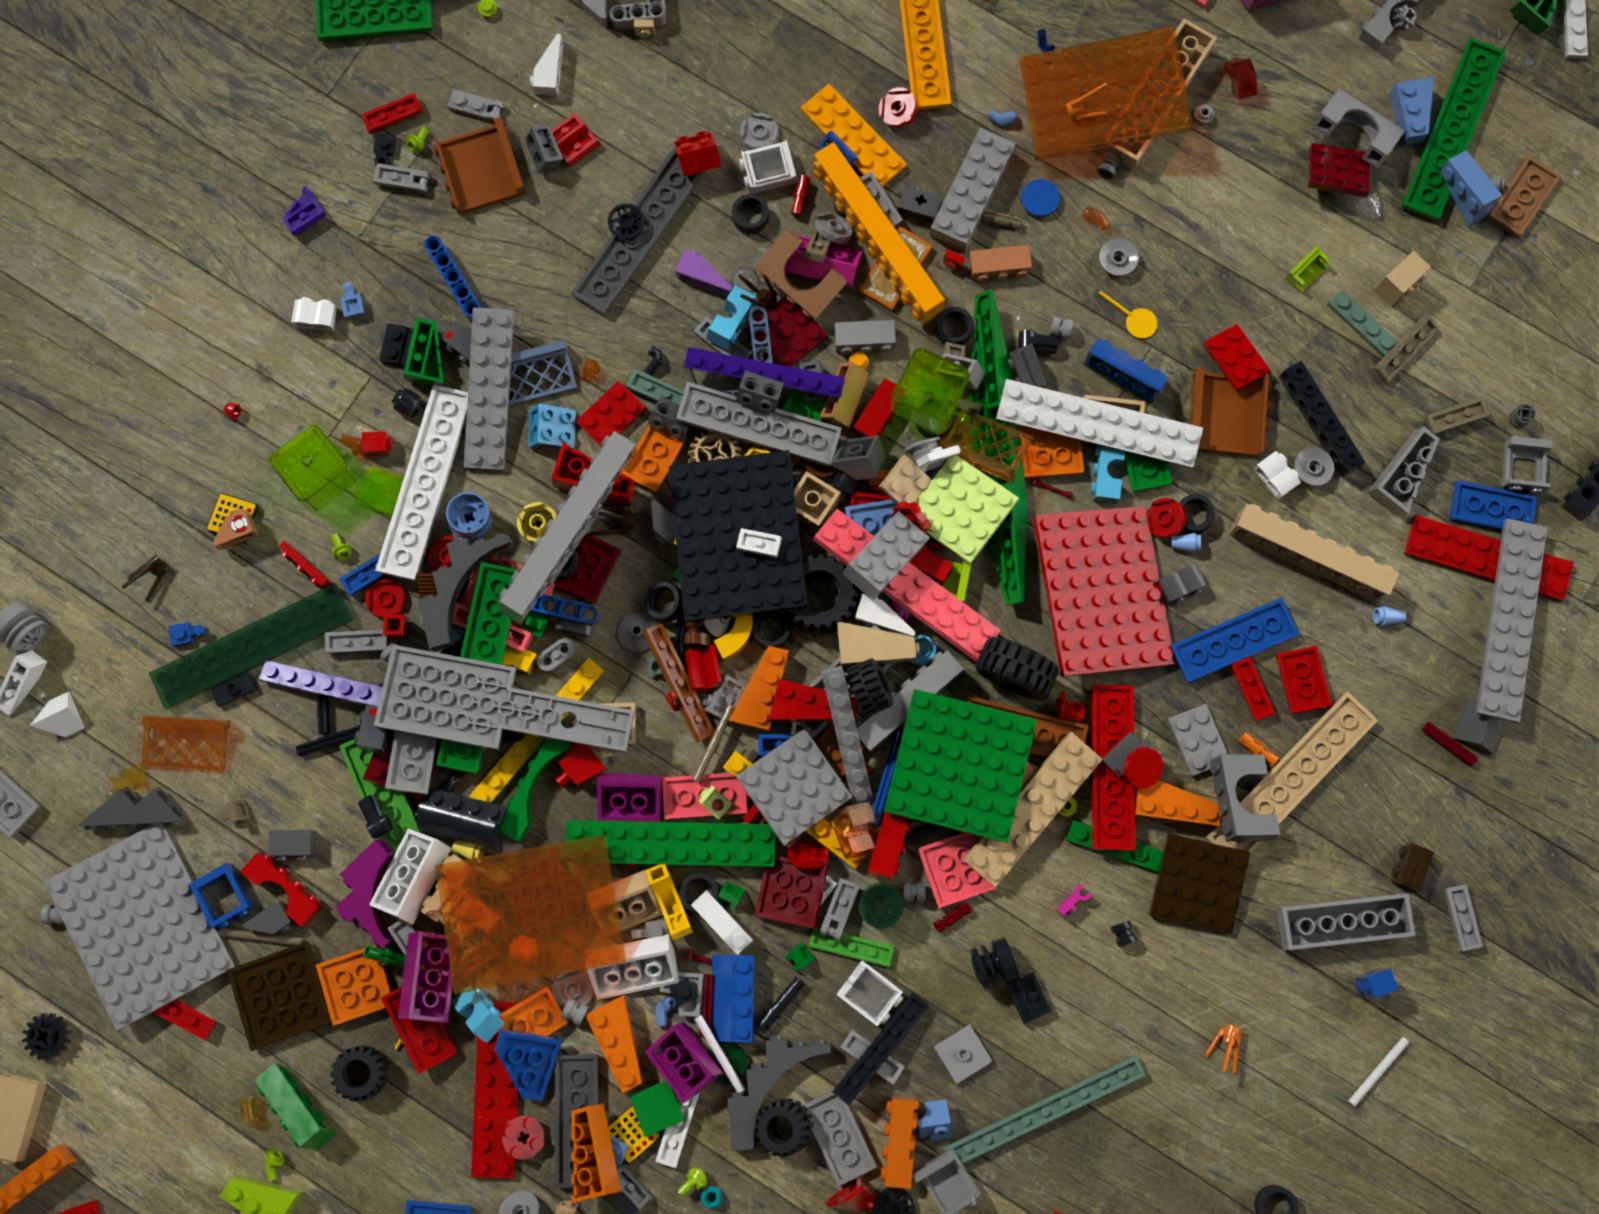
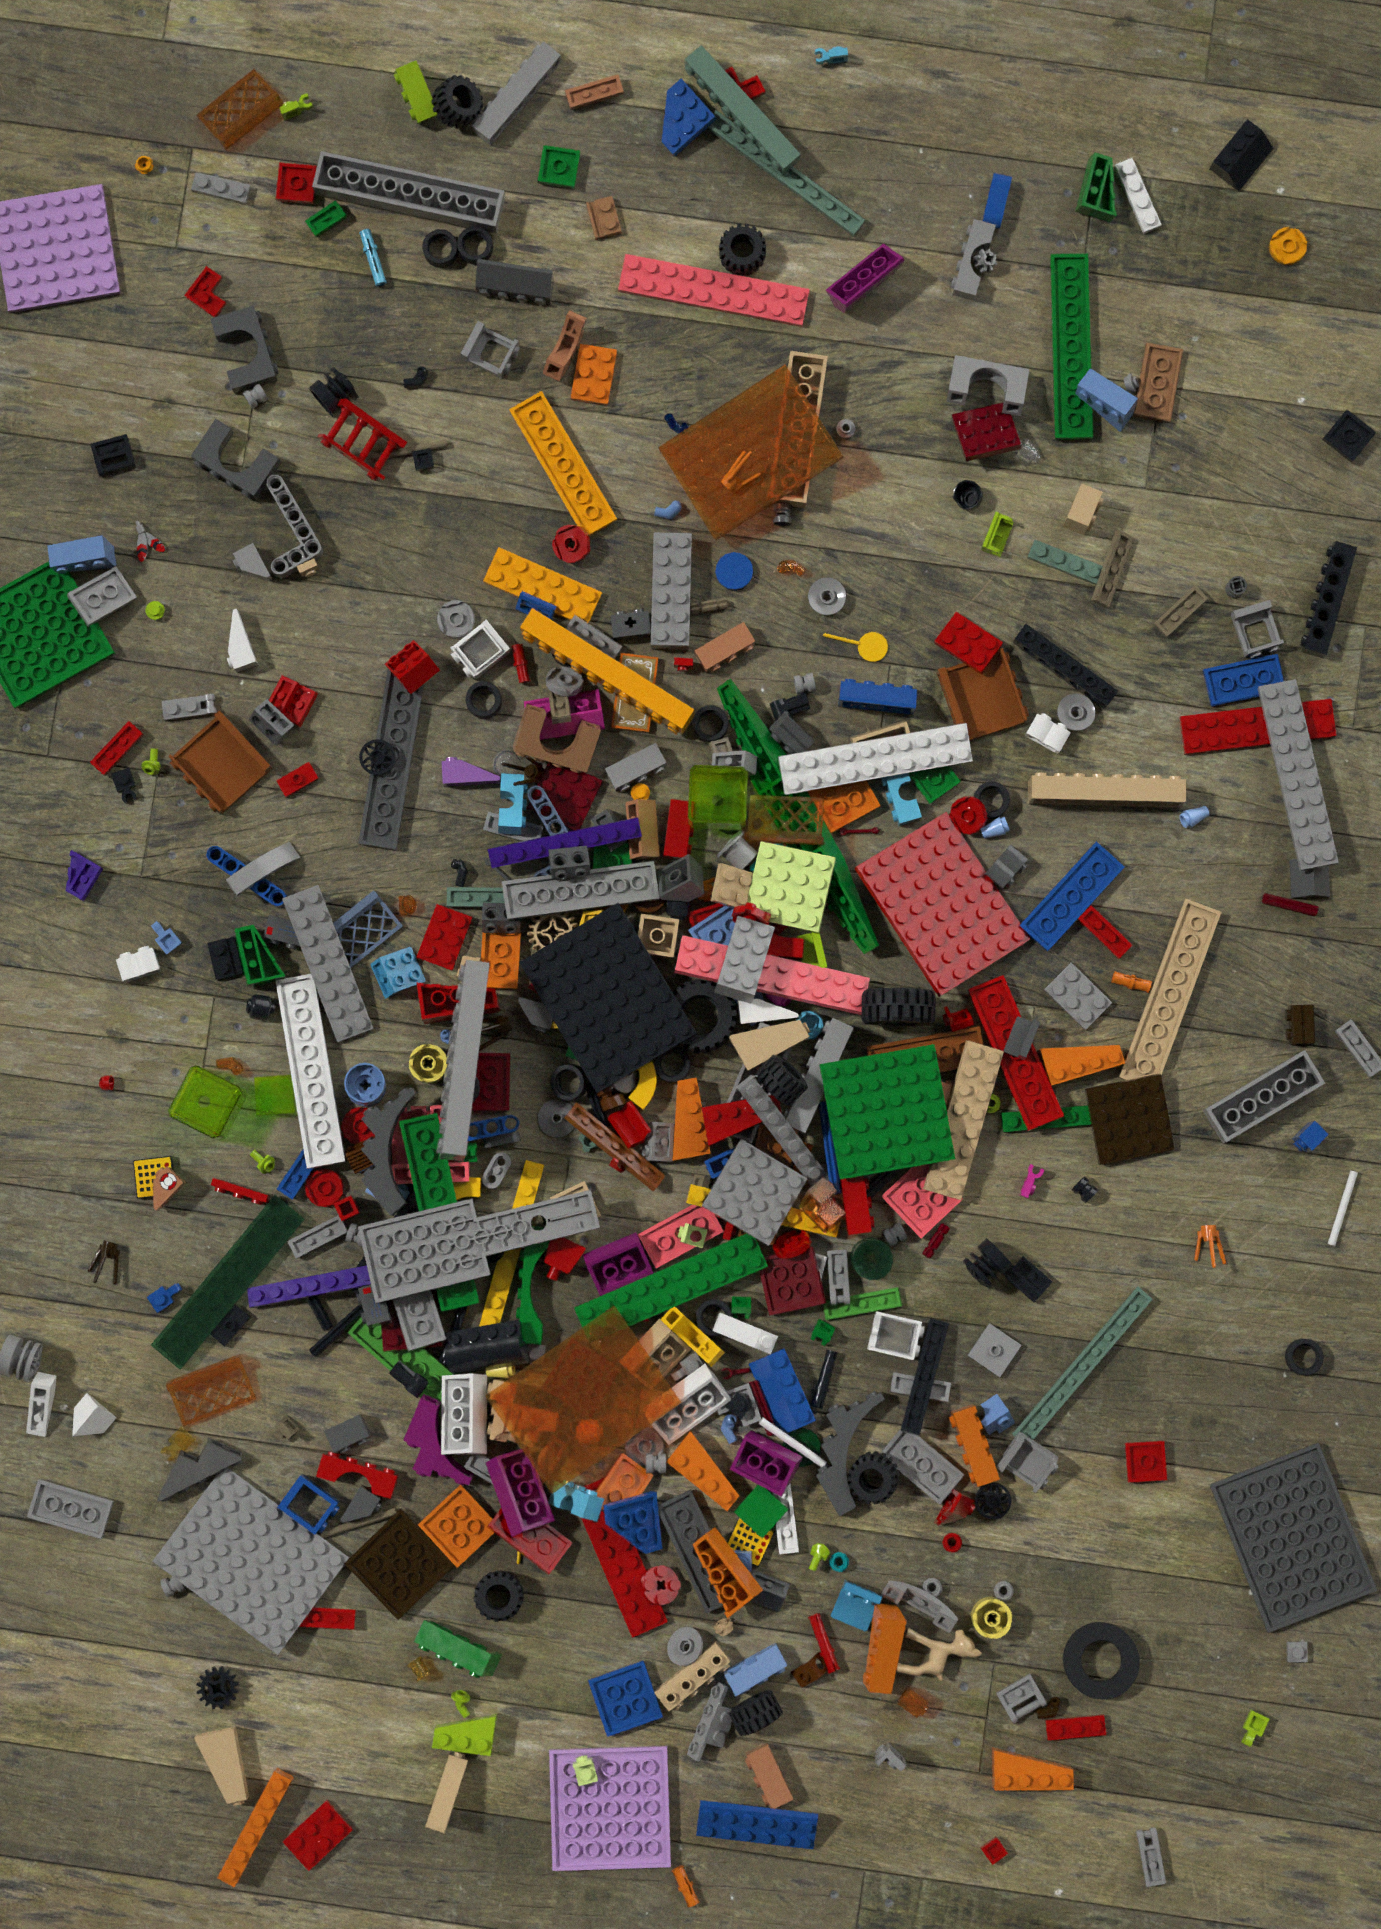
camera: 25 degrees left, 5 degrees up
(376, 444) = (251, 1055): red brick -> none
(384, 956) = (474, 1491): green pin -> none
(401, 178) = (154, 804): light grey plate -> none
(471, 273) = (262, 867): none -> light grey slope
(543, 212) = (297, 779): none -> red plate
(713, 743) = (668, 1185): dark tan bar -> none
(758, 543) = (631, 998): white plate -> none
(938, 455) = (749, 849): white plate -> none
(966, 404) = (753, 790): dark tan tile -> none
(1143, 767) = (1041, 1043): red tile -> none
(1236, 821) = (1138, 1054): arch -> none
(1242, 77) = (865, 381): clear red brick -> none
(1295, 220) = (968, 495): none -> black hair
(1303, 679) = (1144, 904): red plate -> none
(1402, 477) = (1154, 689): light grey wedge -> none
(1412, 109) = (1027, 344): medium blue wedge -> none

